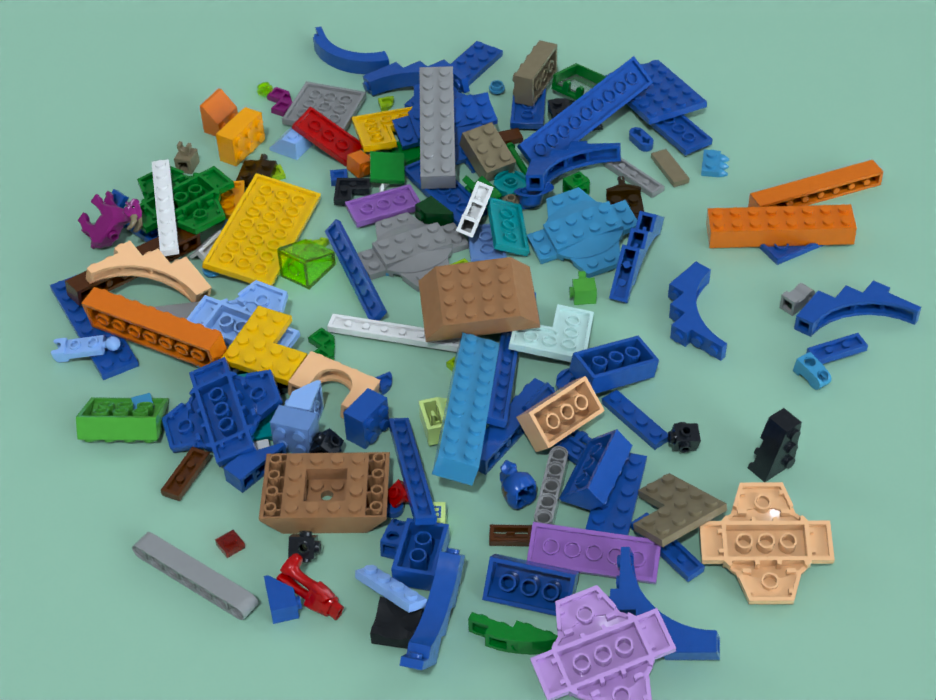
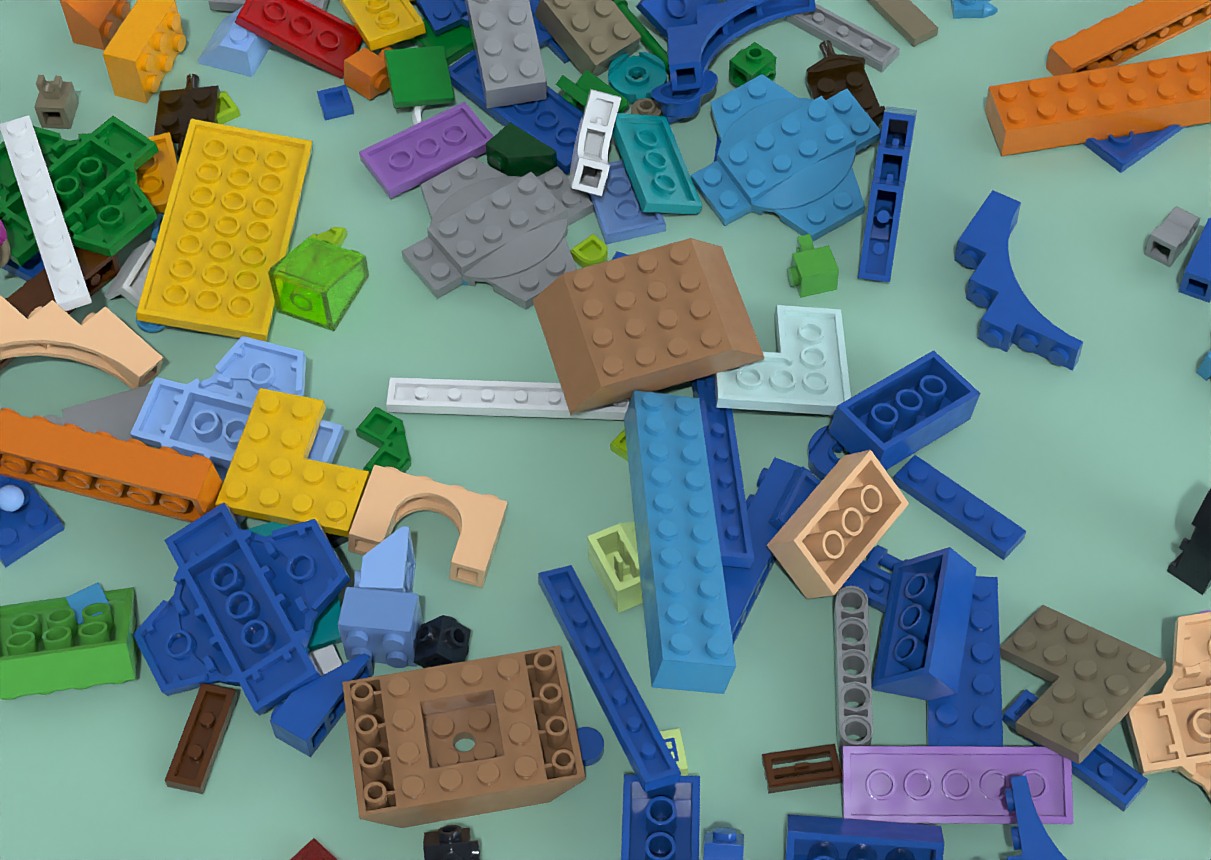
camera: 10 degrees left, 10 degrees up
(348, 186) = (357, 120): black plate -> none
(355, 271) = (410, 287): blue plate -> none
(366, 418) = (502, 582): blue brick -> none
(385, 382) = (514, 495): blue tile -> none
(391, 538) = (604, 811): blue leg -> none
(397, 494) = (591, 723): red bracket -> none
(516, 486) = (793, 676): blue piece -> none
(684, 437) = (1054, 533): black brick -> none

